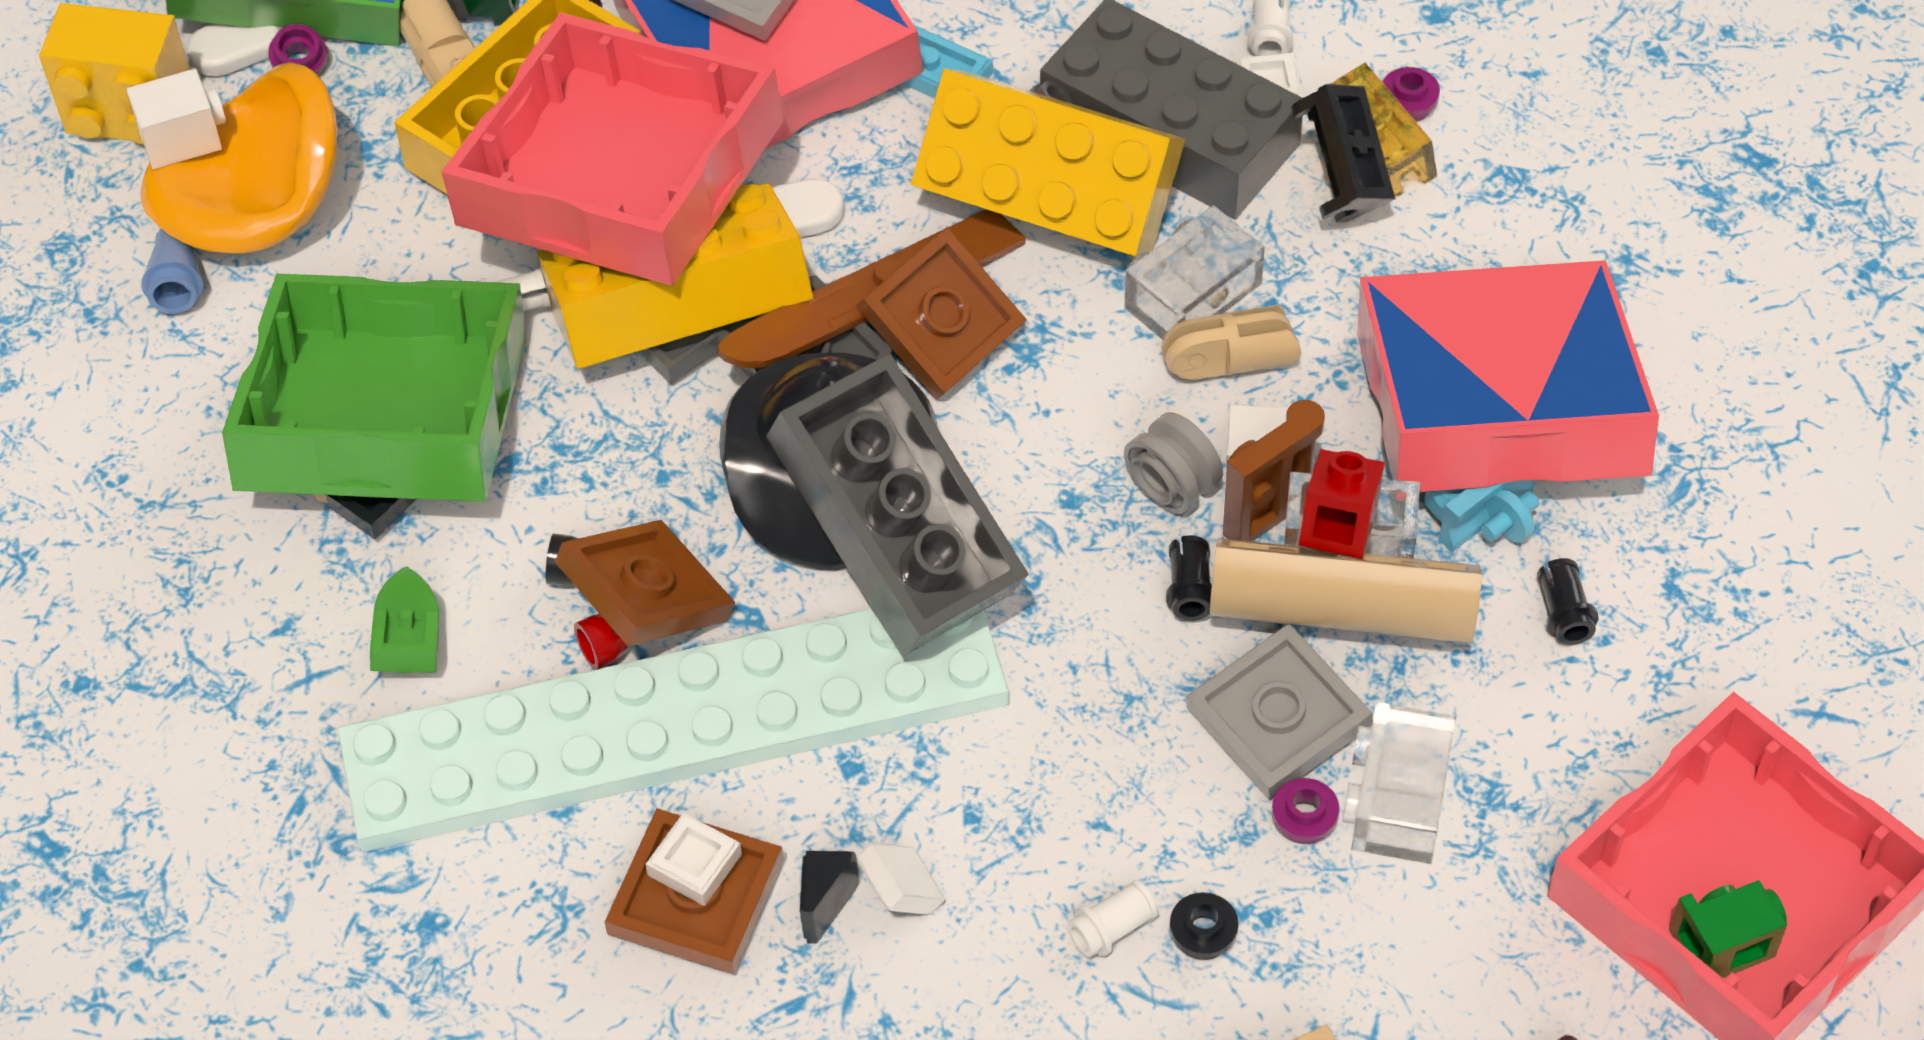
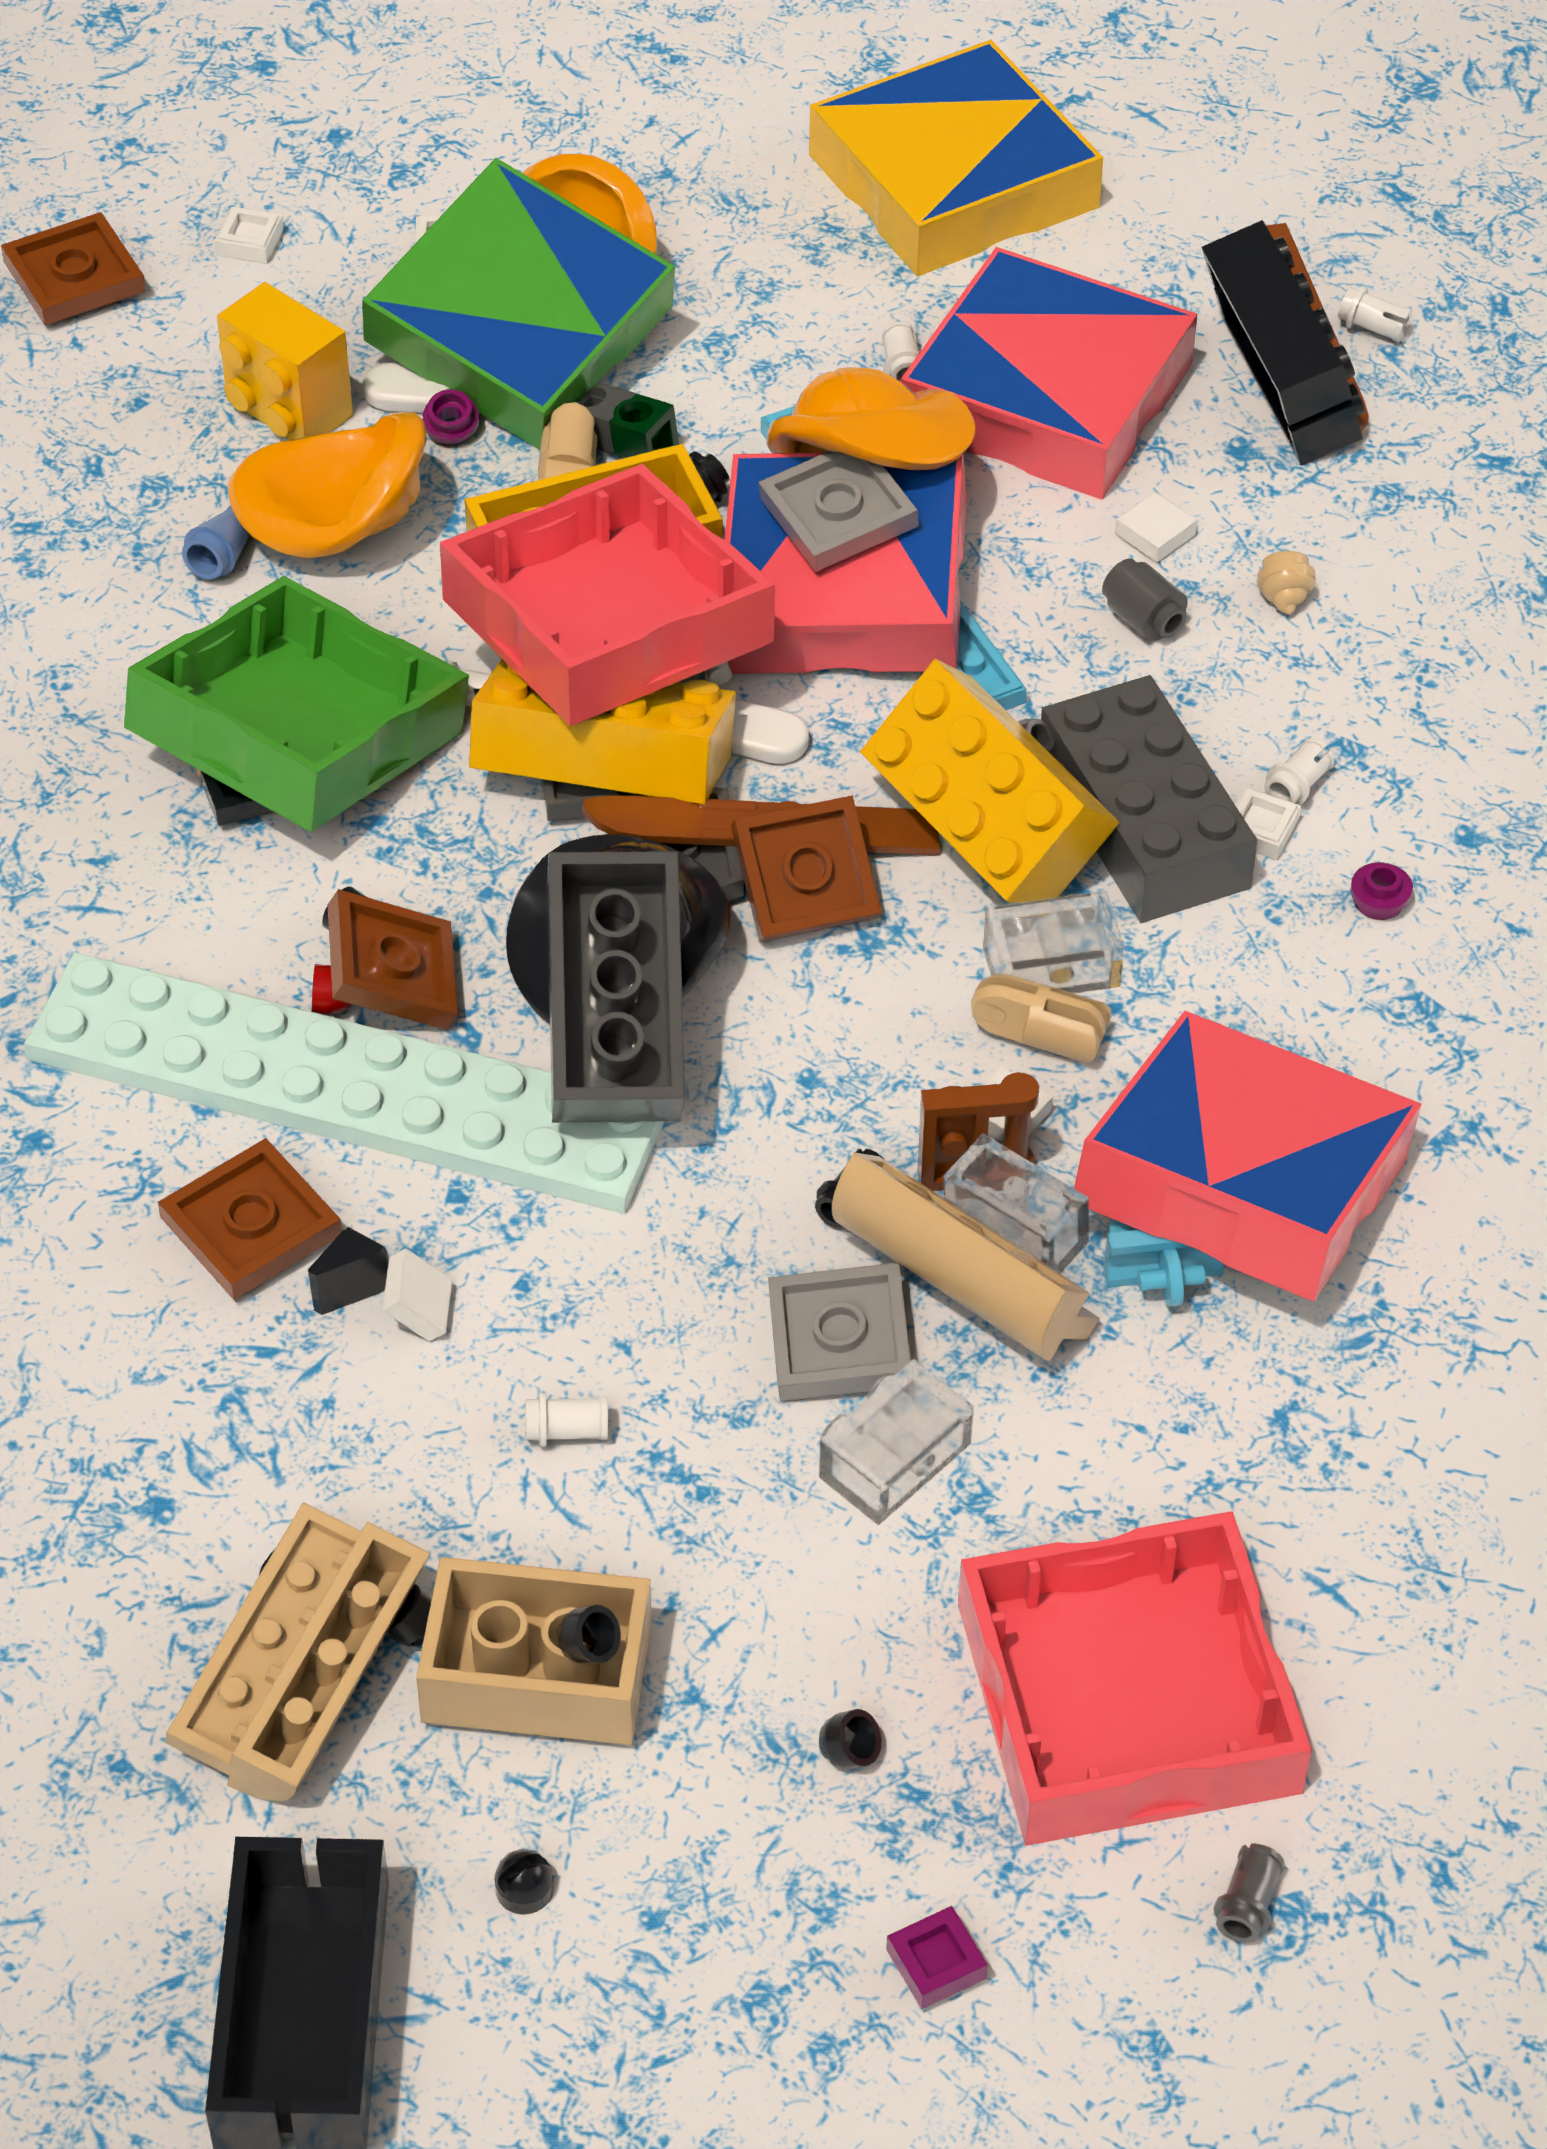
camera: 30 degrees right, 5 degrees down
(176, 118) = (297, 417): white brick -> none
(405, 625) = (183, 901): bright green plate -> none
(693, 859) = (260, 1189): white tile -> none
(1173, 462) = (898, 1081): light grey wheel -> none
(1201, 942) = (643, 1480): black plate -> none
(1305, 826) = (793, 1436): magenta plate -> none
(1341, 503) = (988, 1171): red brick -> none
(1348, 149) = (1263, 901): black hinge -> none
(1401, 138) = (1316, 902): clear yellow hinge -> none
(1570, 614) = (1161, 1387): black pin -> none
(1731, 926) = (1080, 1706): green brick -> none

